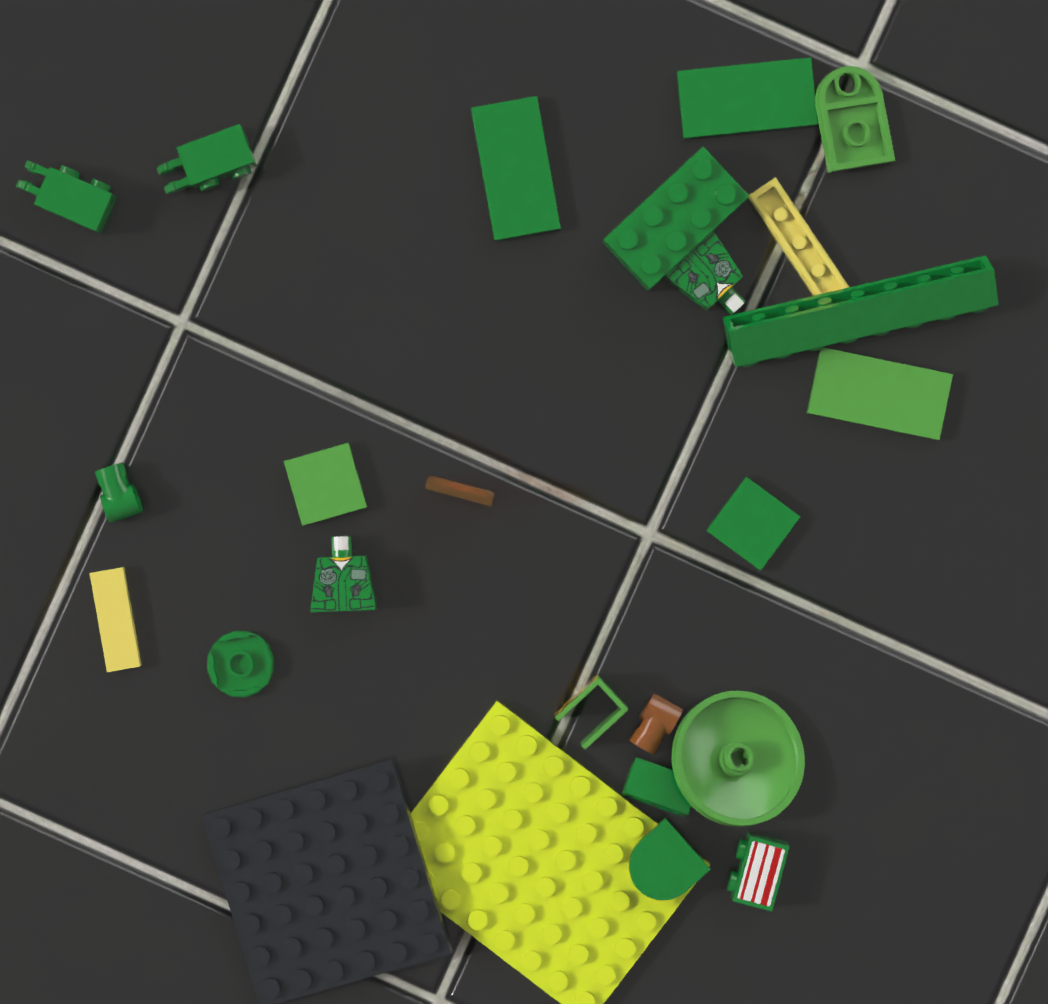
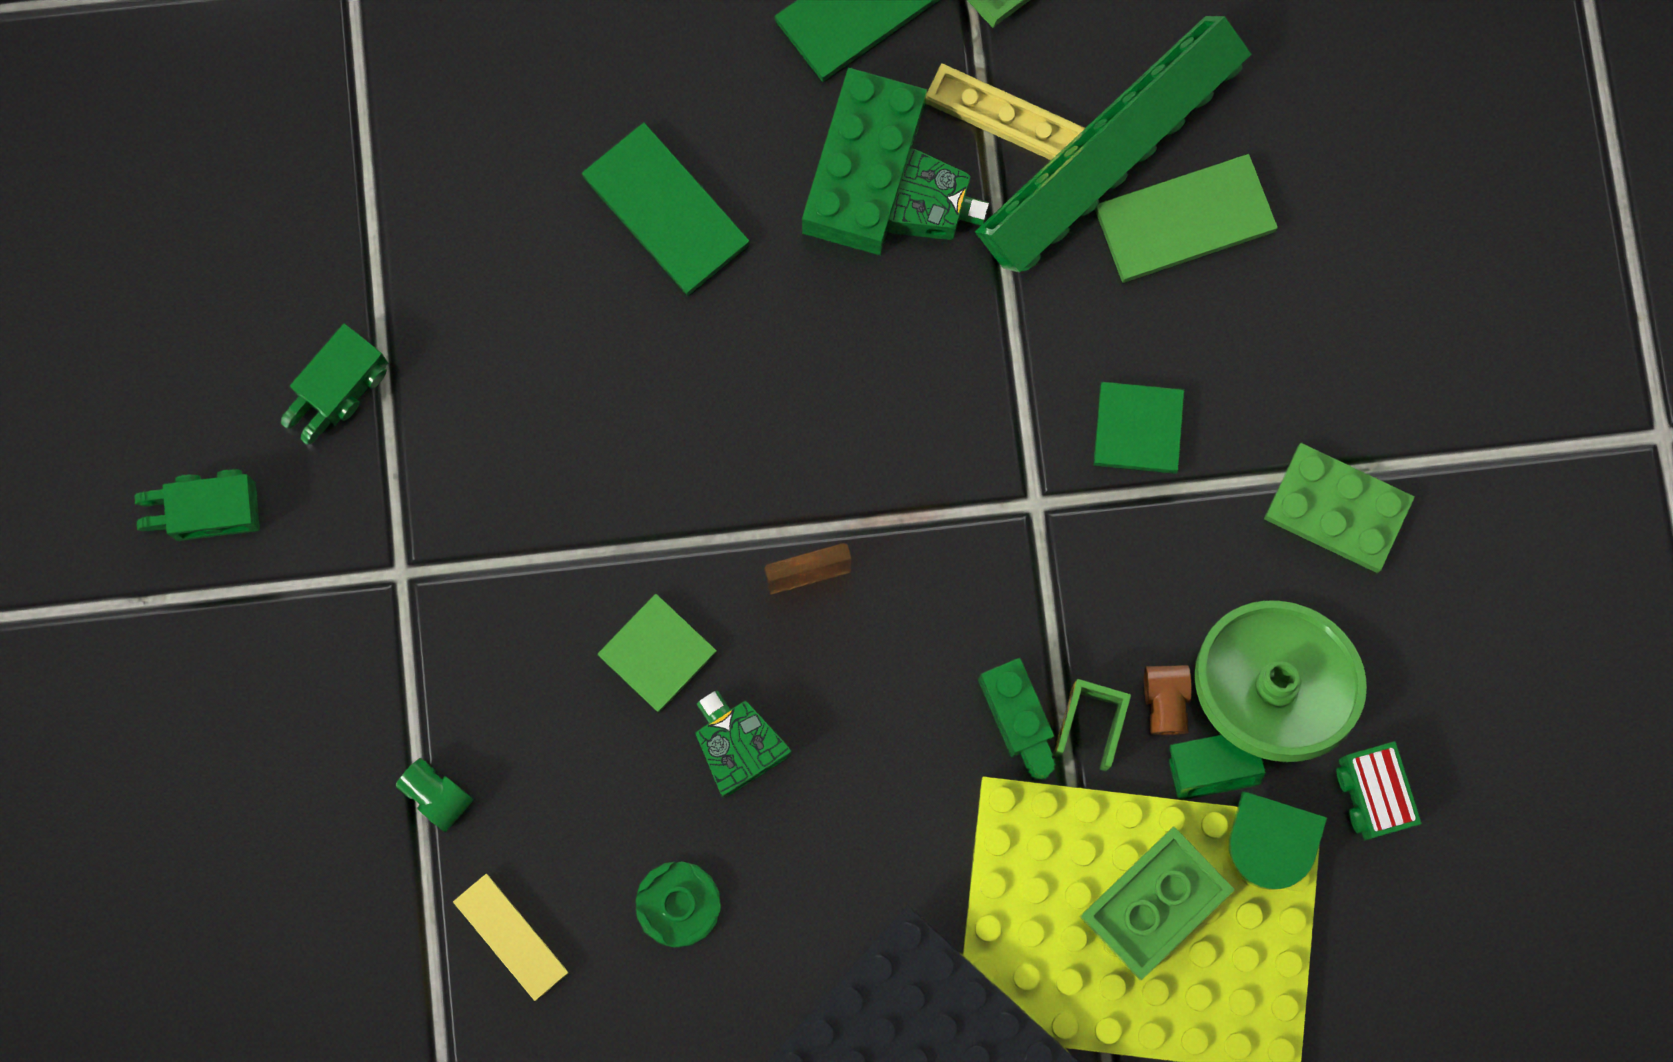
camera: 30 degrees left, 10 degrees down
(546, 676) = (1019, 716): none -> green hinge
(560, 857) = (1157, 903): none -> bright green plate
(857, 662) = (1339, 508): none -> bright green plate

